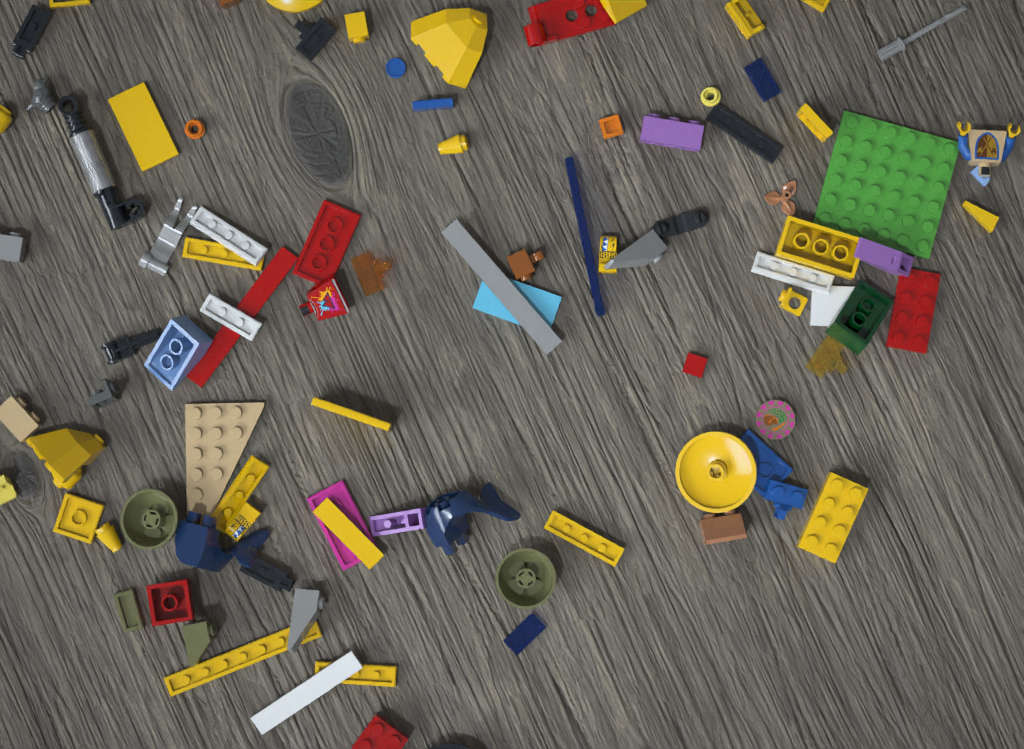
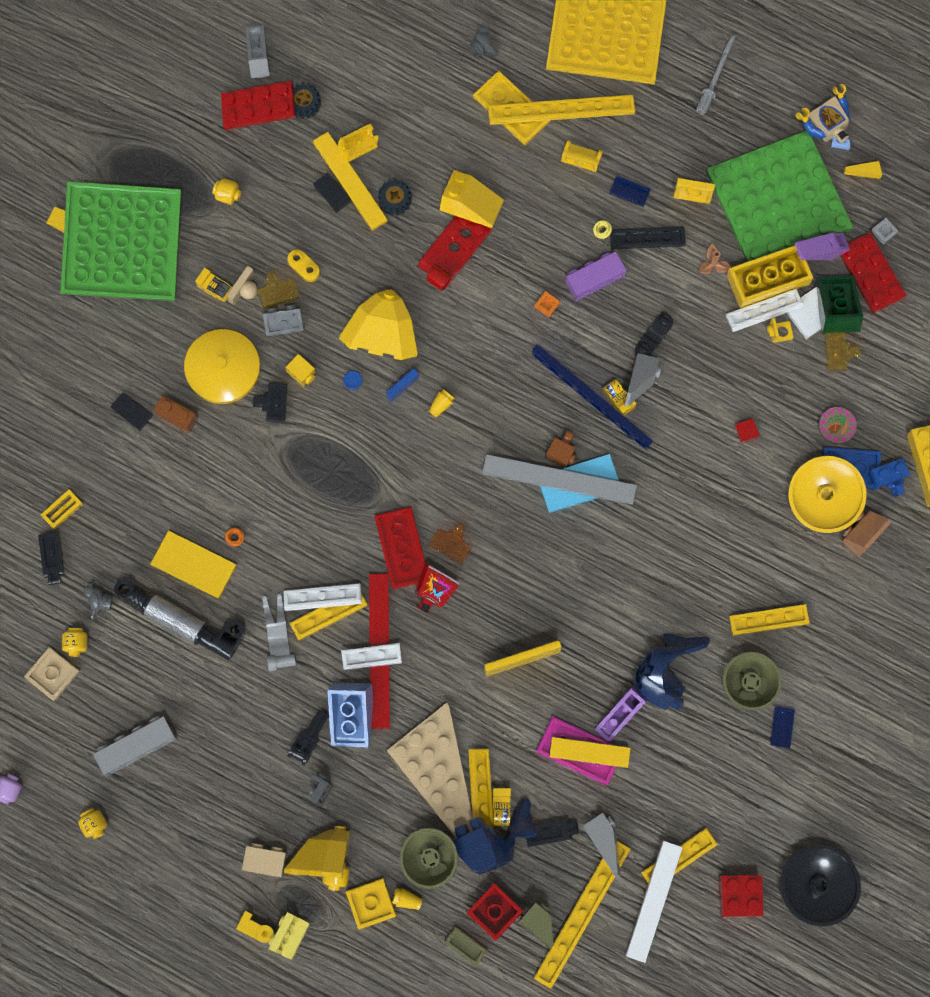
camera: 40 degrees left, 10 degrees down
(953, 283) = (884, 231): none -> light grey plate

